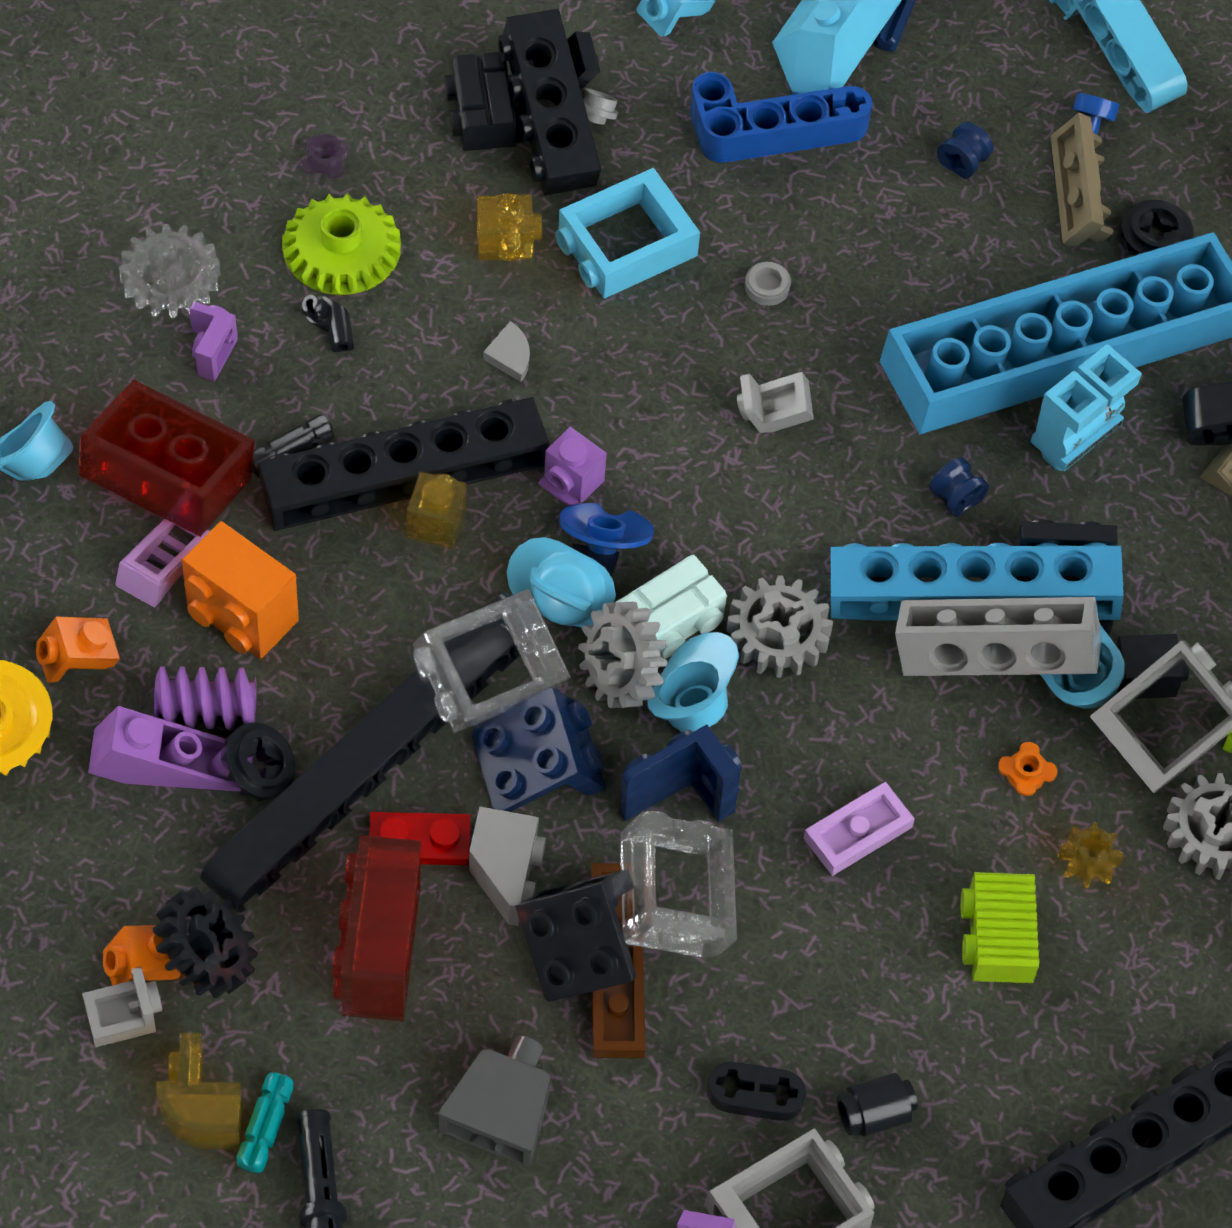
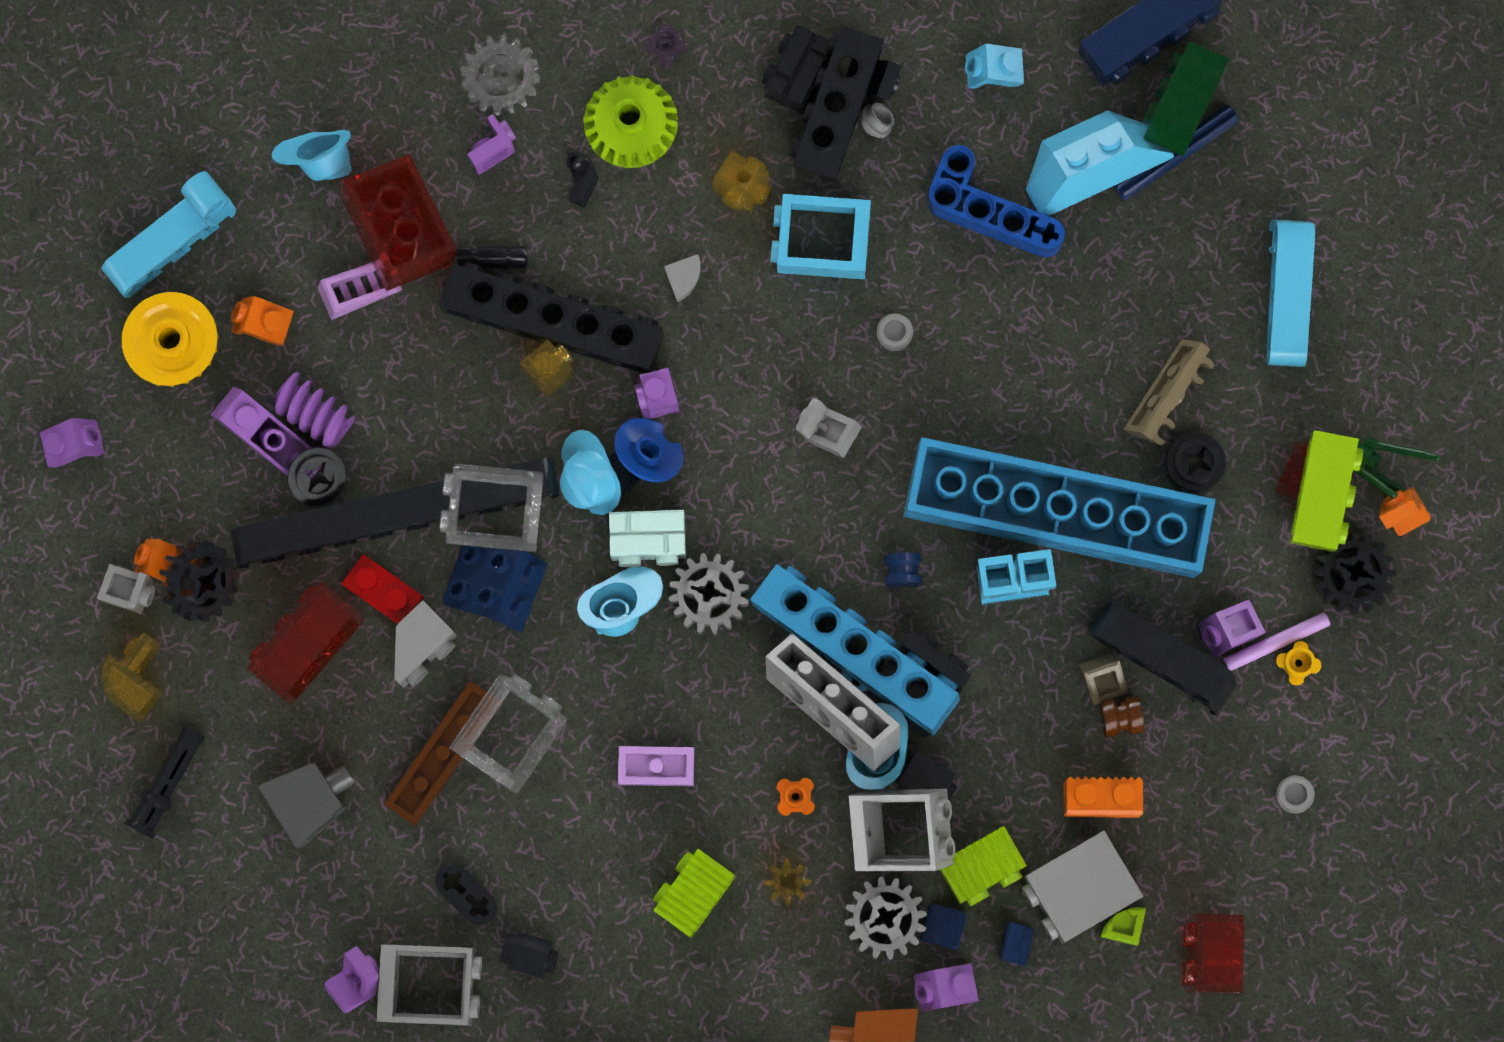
camera: 45 degrees right, 20 degrees up
(240, 591) = (378, 352): orange brick -> none
(264, 1122) = (164, 716): teal axle -> none
(578, 936) = (417, 723): black bracket -> none
(622, 654) = (585, 554): light grey gear -> none
(687, 760) = (584, 675): dark blue bracket -> none
(965, 149) = (1107, 315): dark blue wheel -> none
(1096, 108) = (1225, 341): blue tile -> none

